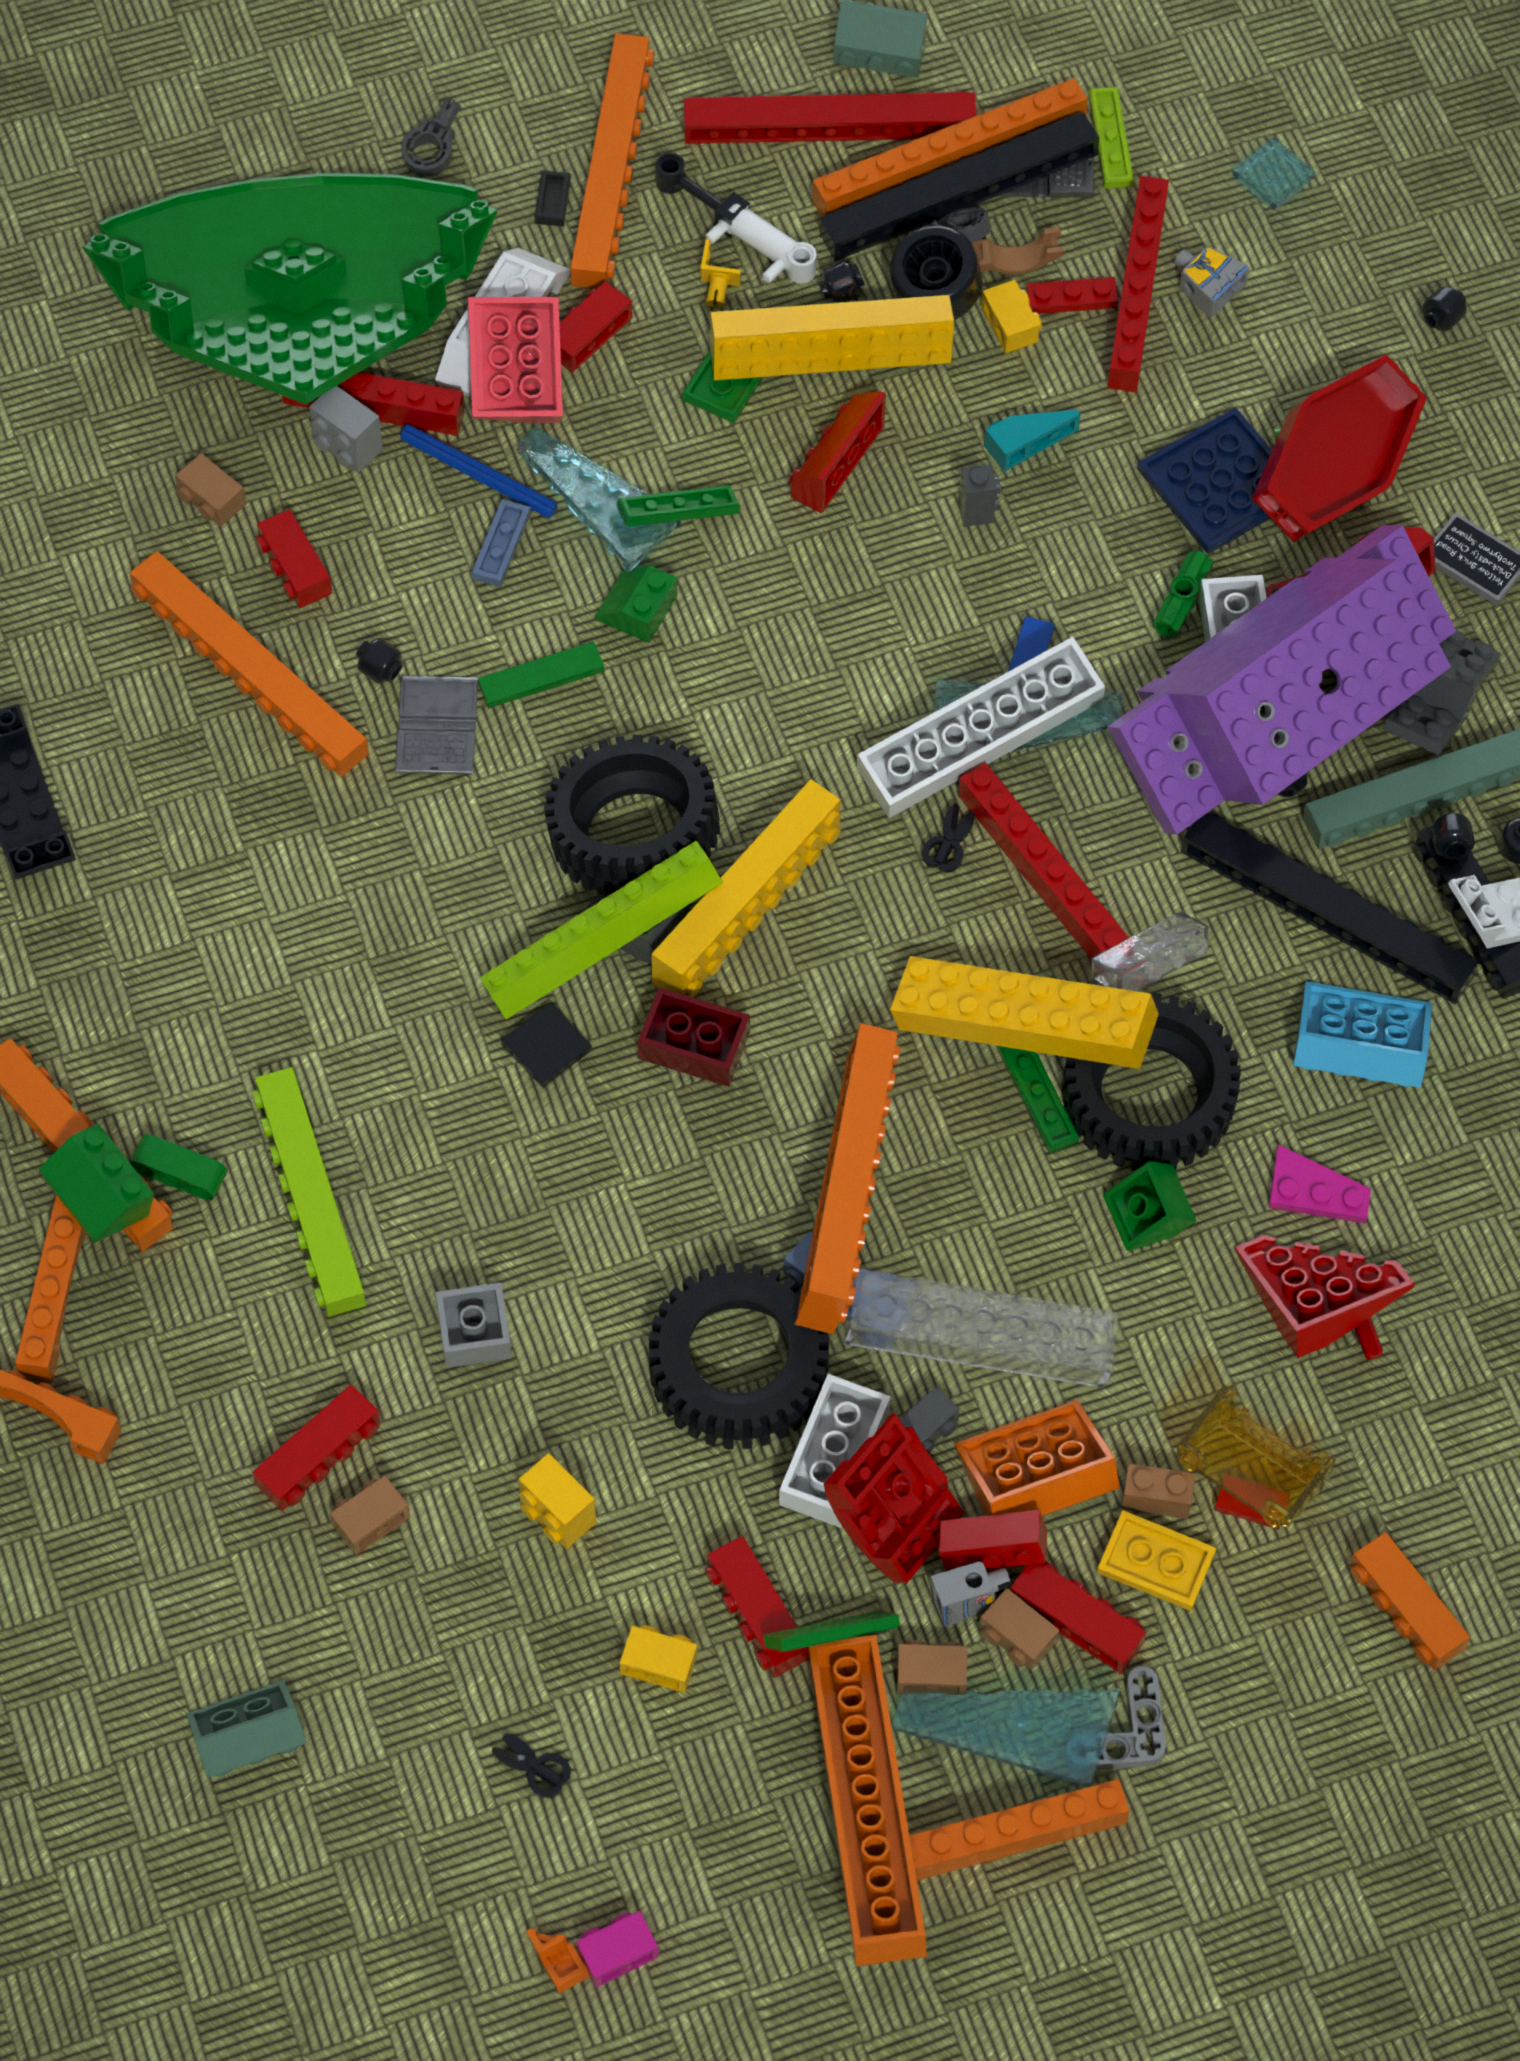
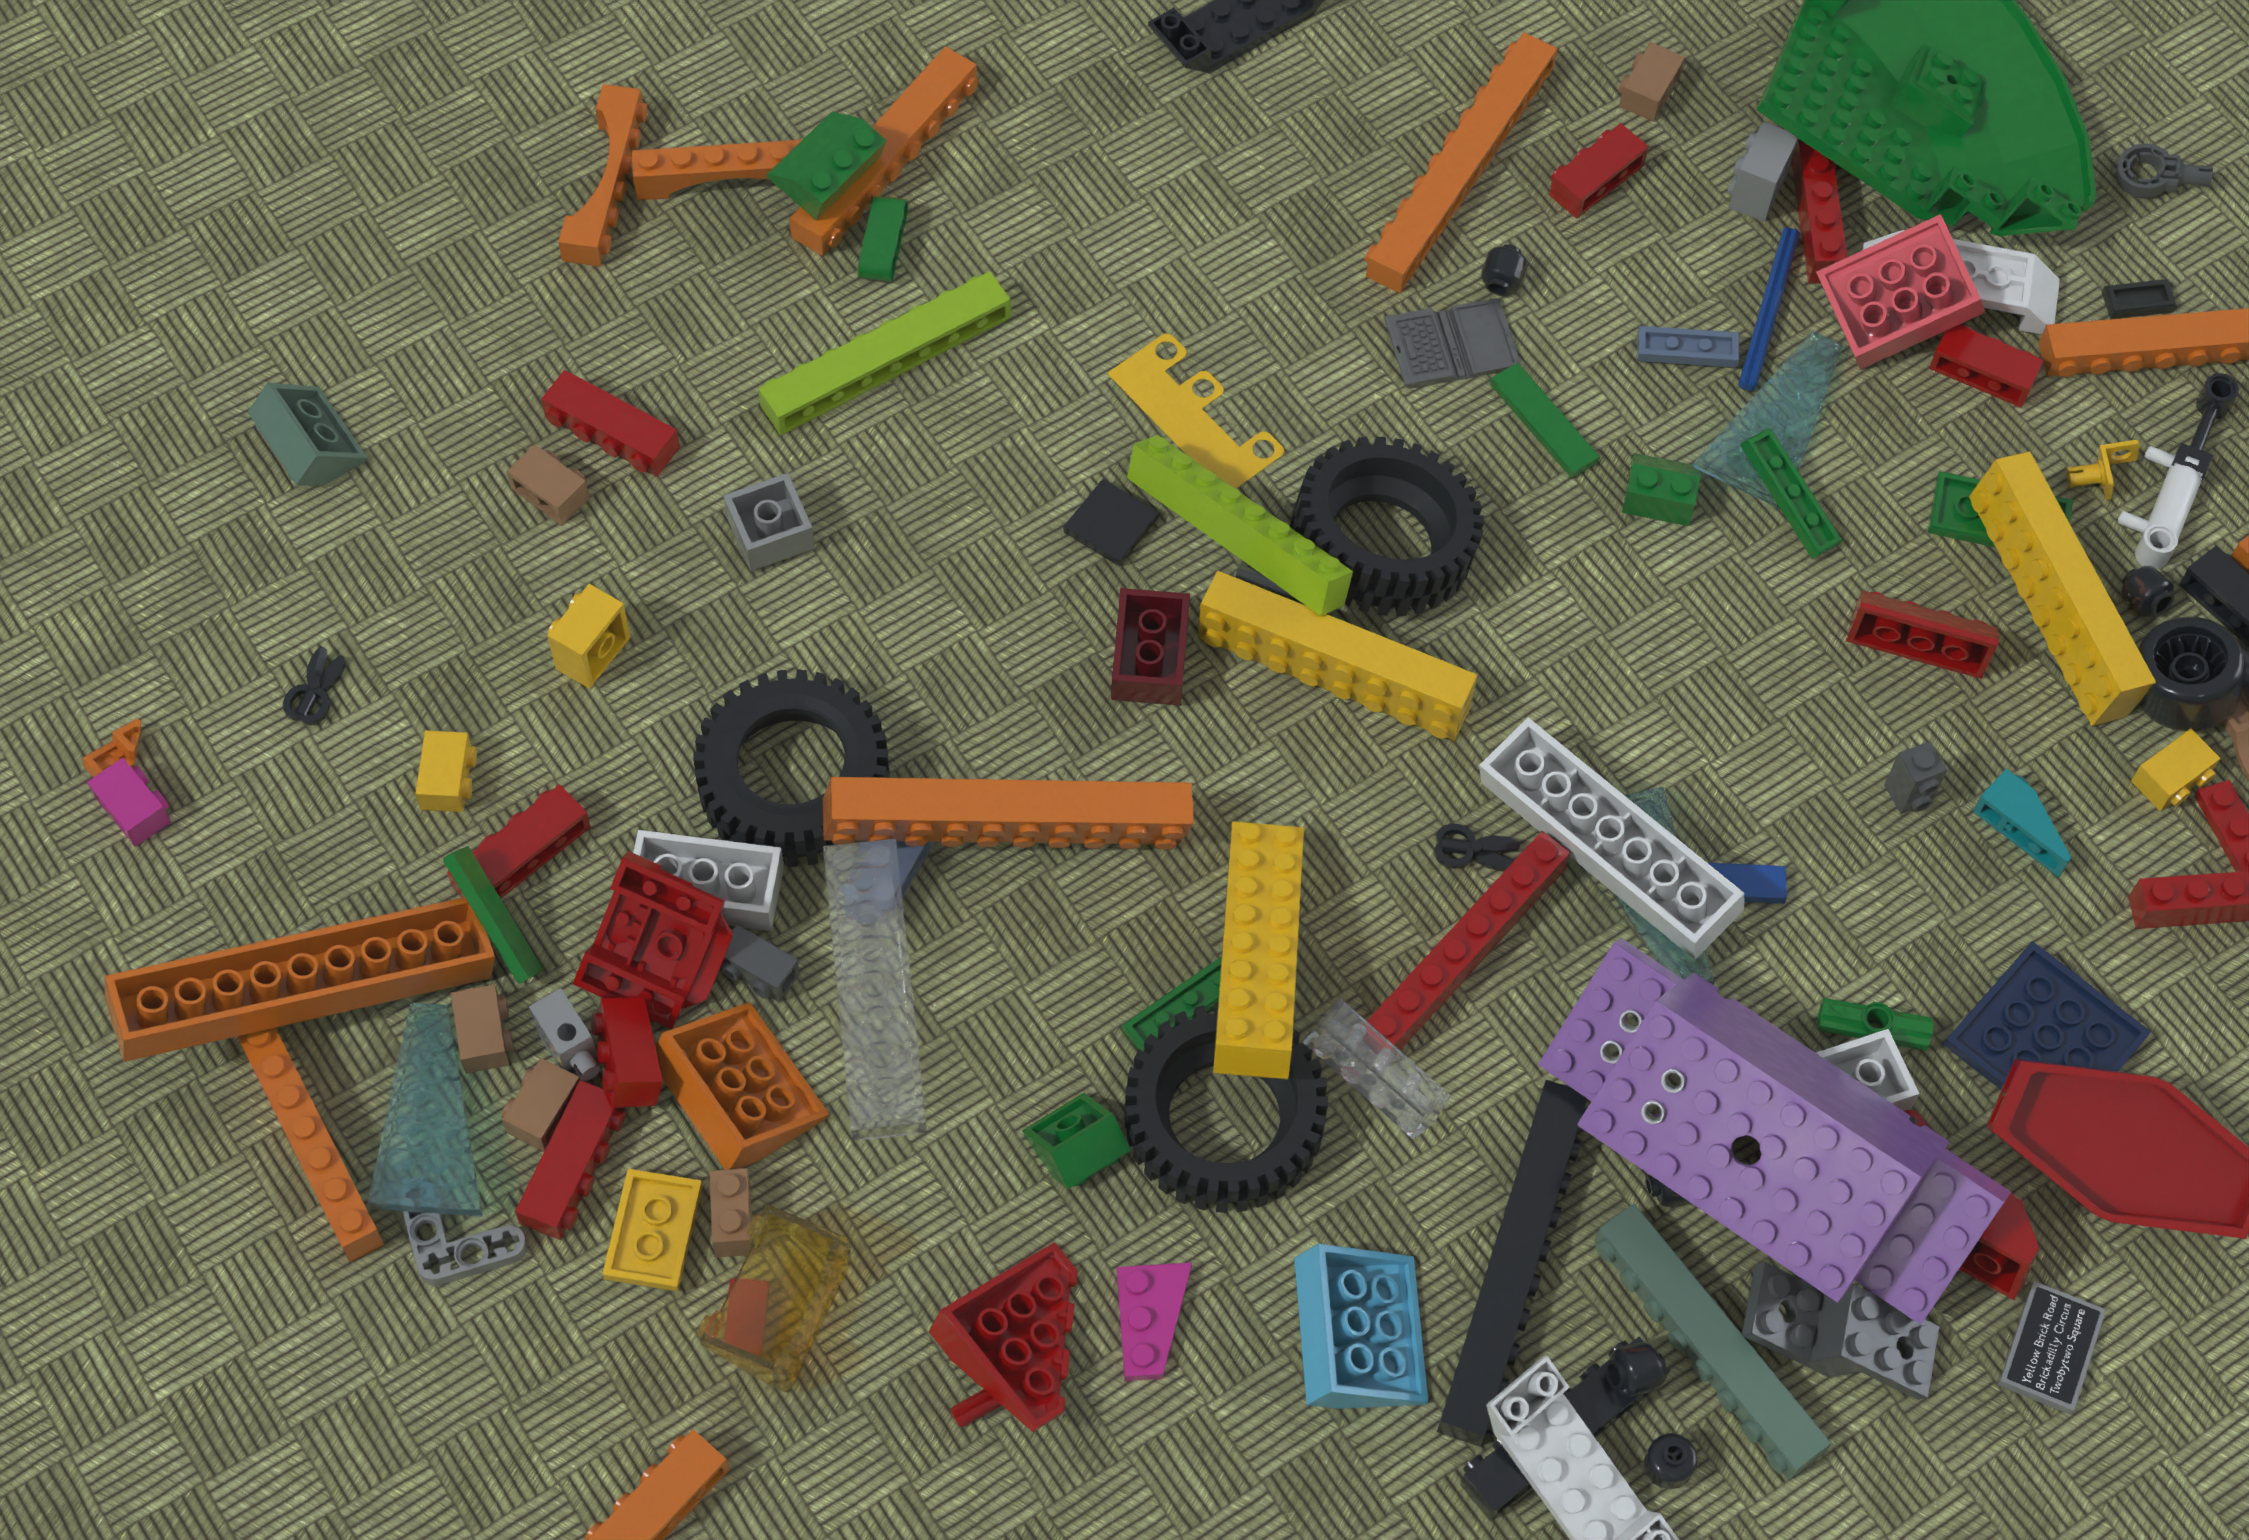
camera: 75 degrees right, 0 degrees up
(446, 964) = (1181, 414): none -> yellow piece

